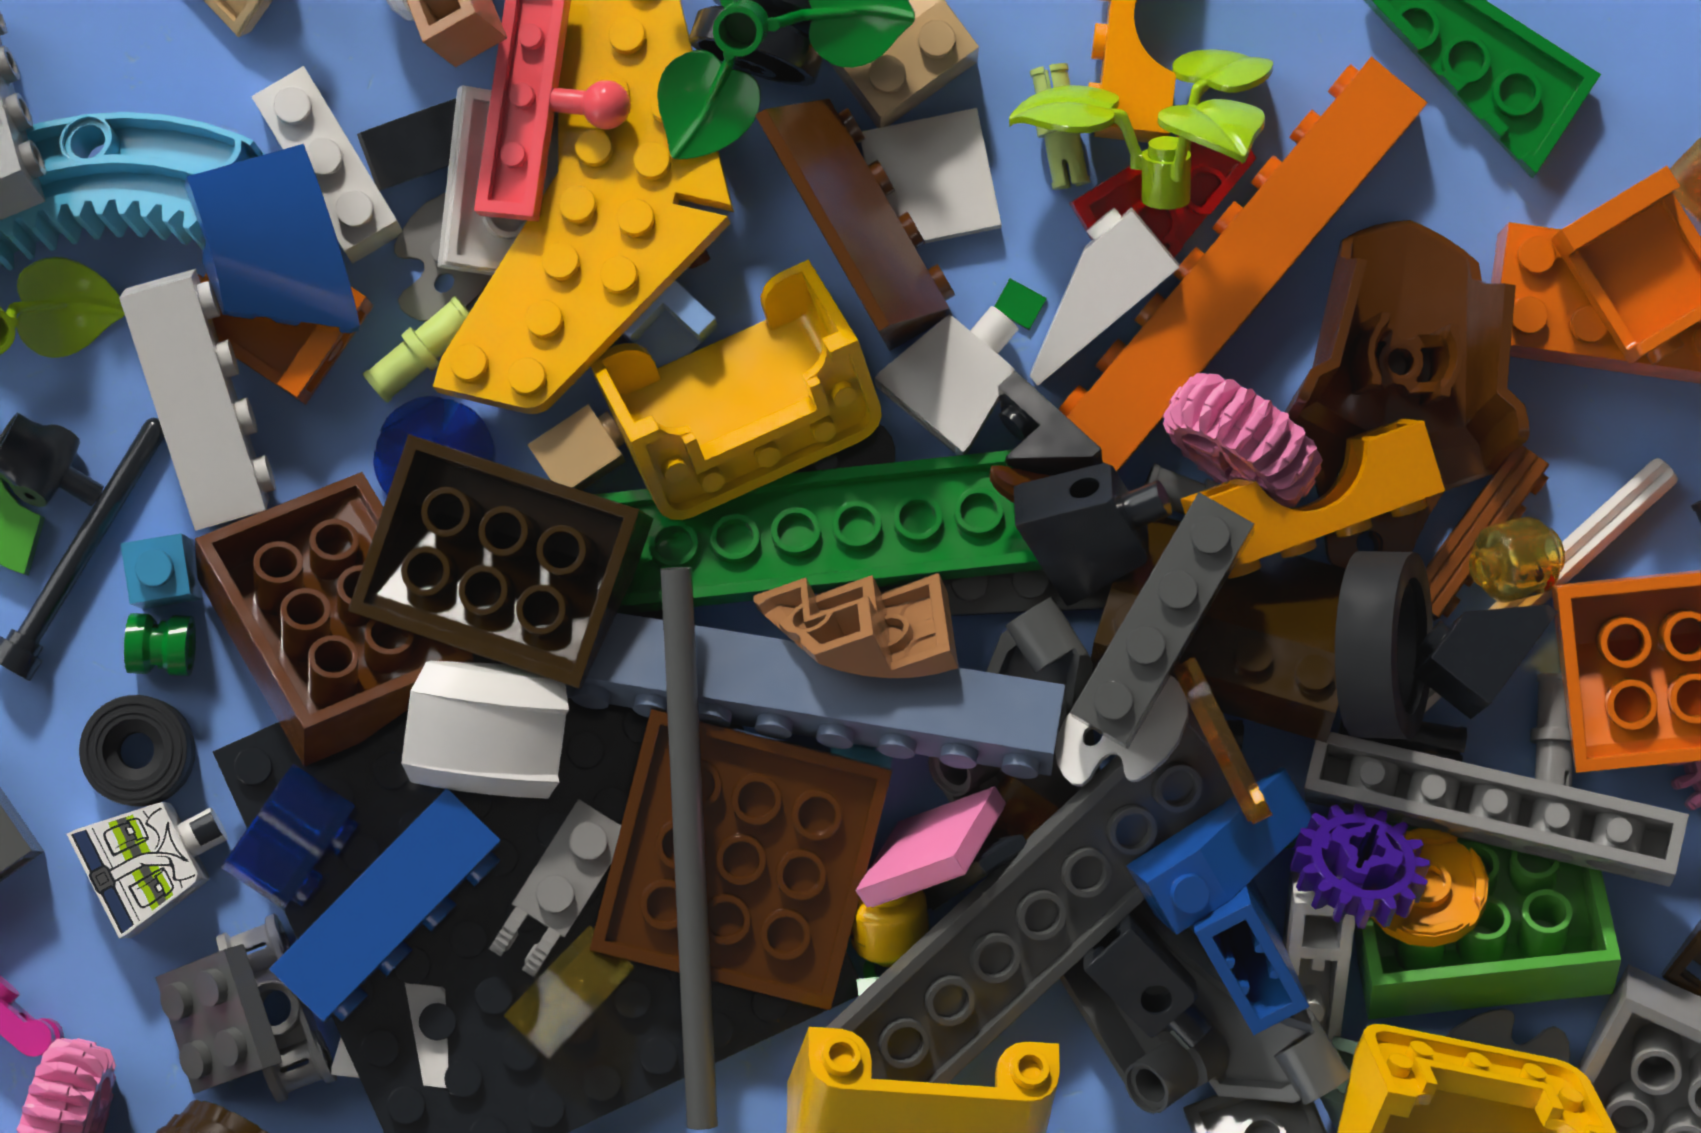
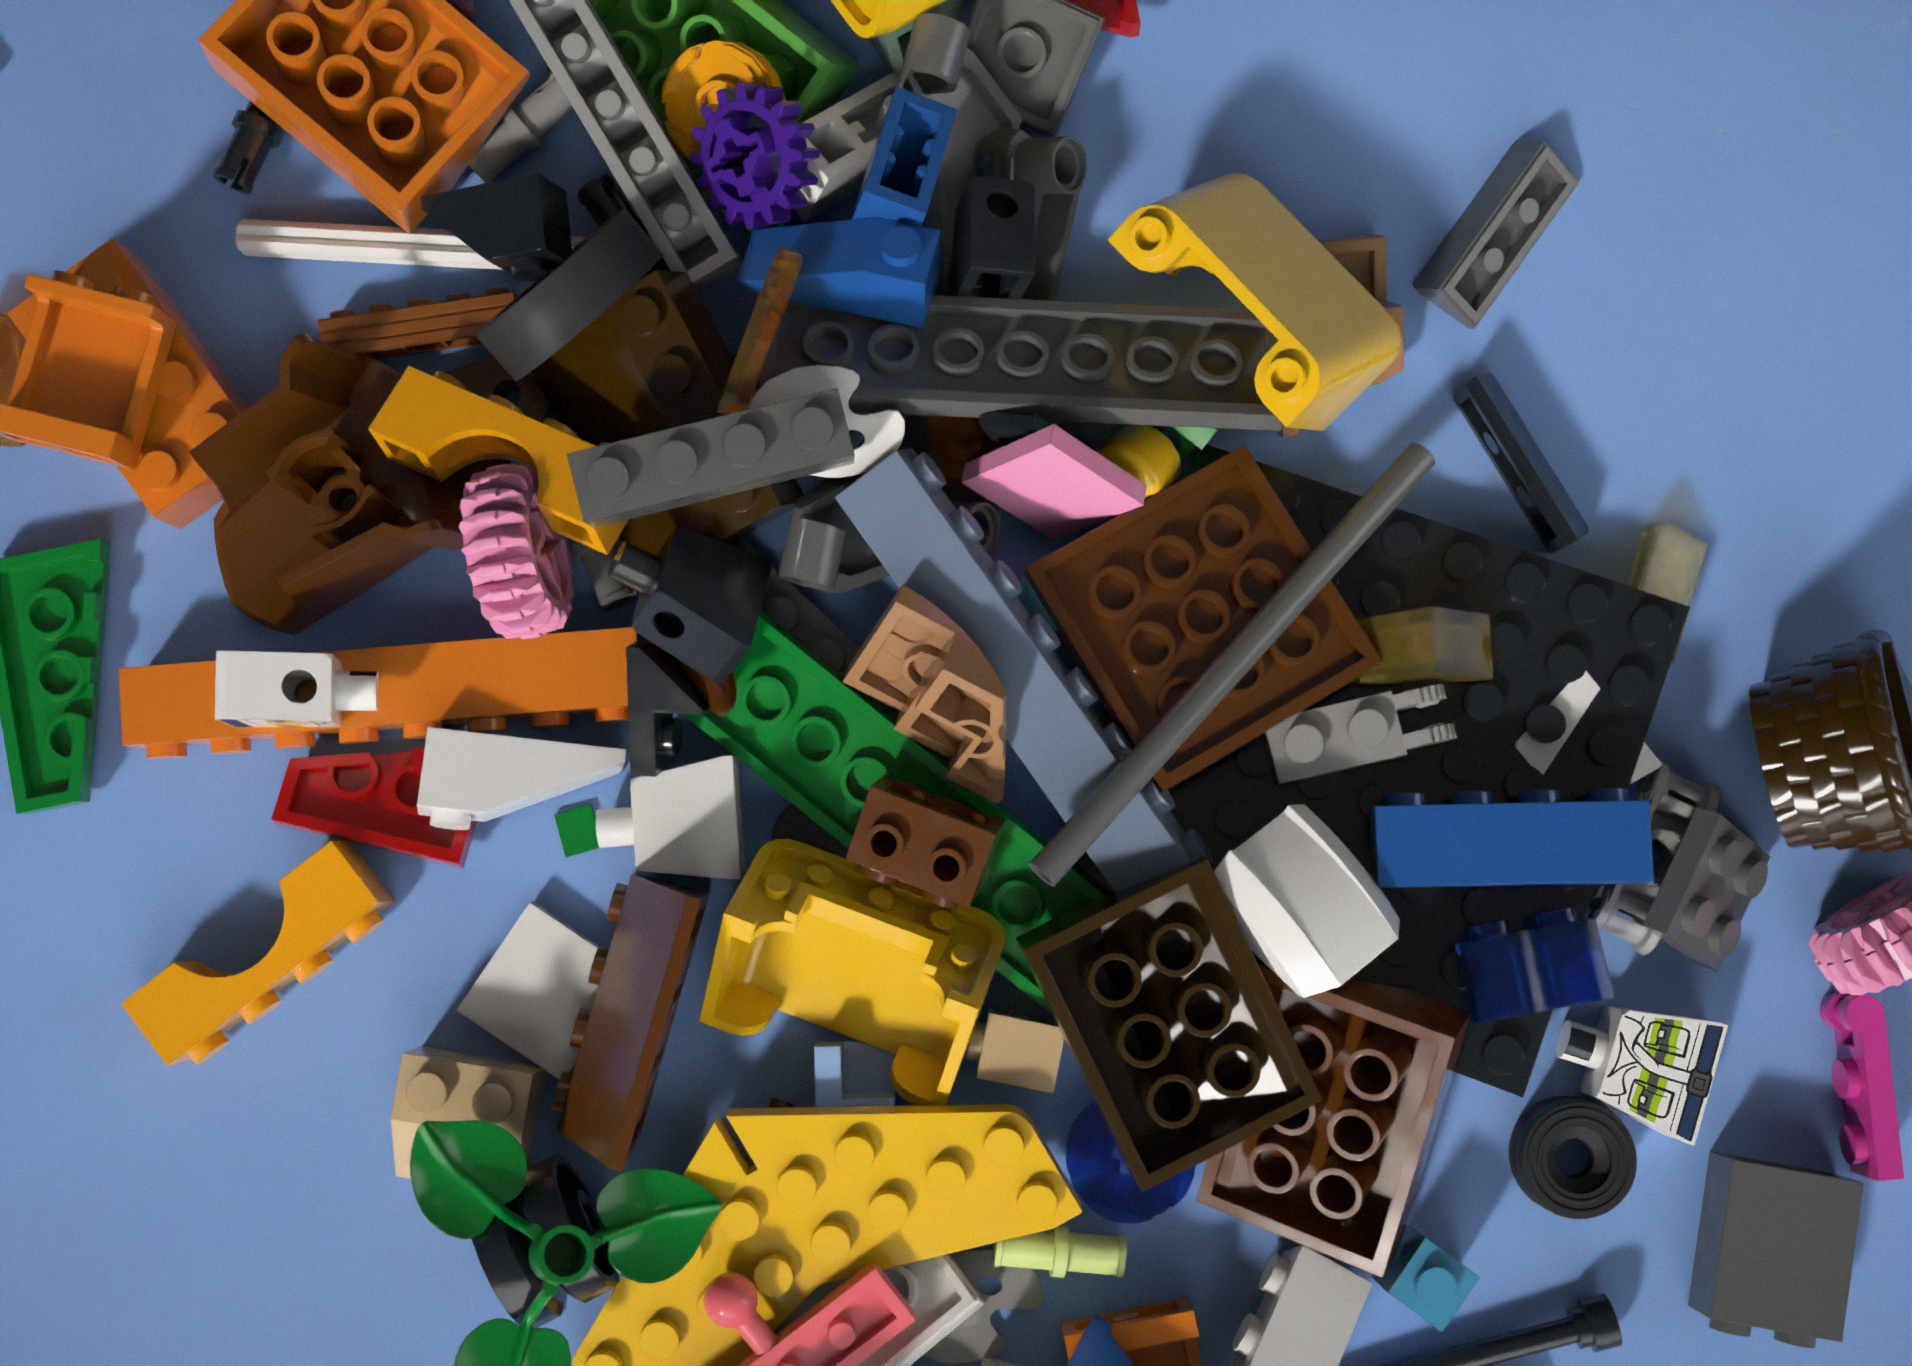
camera: 140 degrees left, 0 degrees up
(166, 644) = (1475, 1217): green wheel -> none
(776, 521) = (924, 842): none -> reddish brown brick
(1060, 146) = (409, 933): yellowish green pin -> none
(1166, 164) = (356, 817): lime plant -> none
(1307, 179) = (262, 689): none -> white torso
(1516, 559) = (411, 269): clear yellow head -> none

